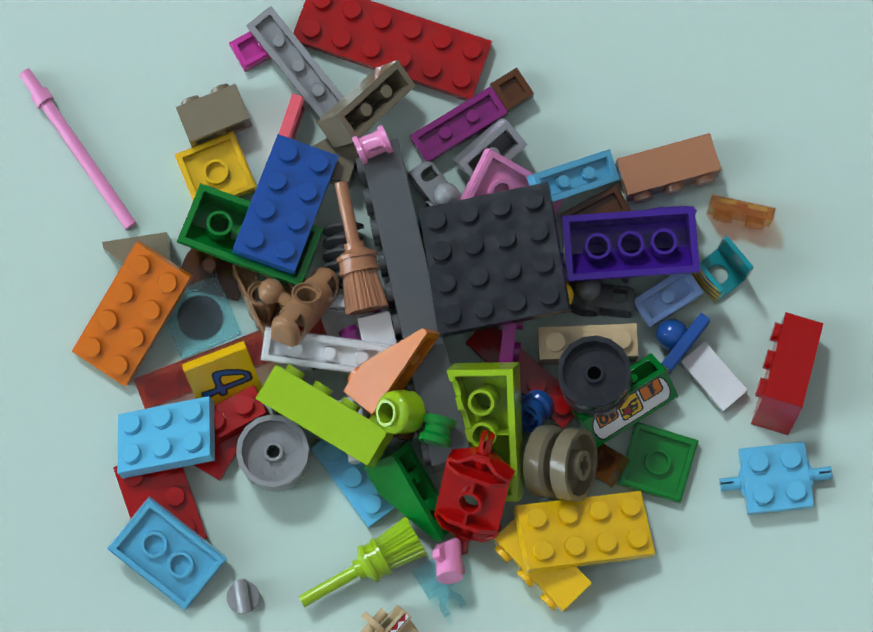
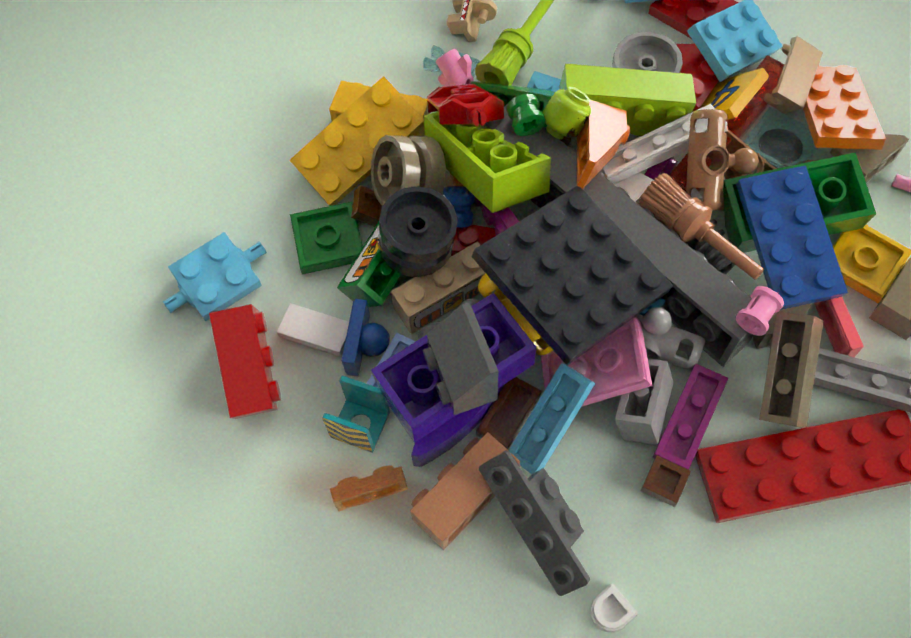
camera: 150 degrees right, 15 degrees down
(148, 358) = (795, 77): none -> tan hinge
(610, 28) = (611, 610): none -> white tile
(624, 111) = (540, 519): none -> dark grey bracket
(634, 221) = (462, 361): none -> dark grey slope

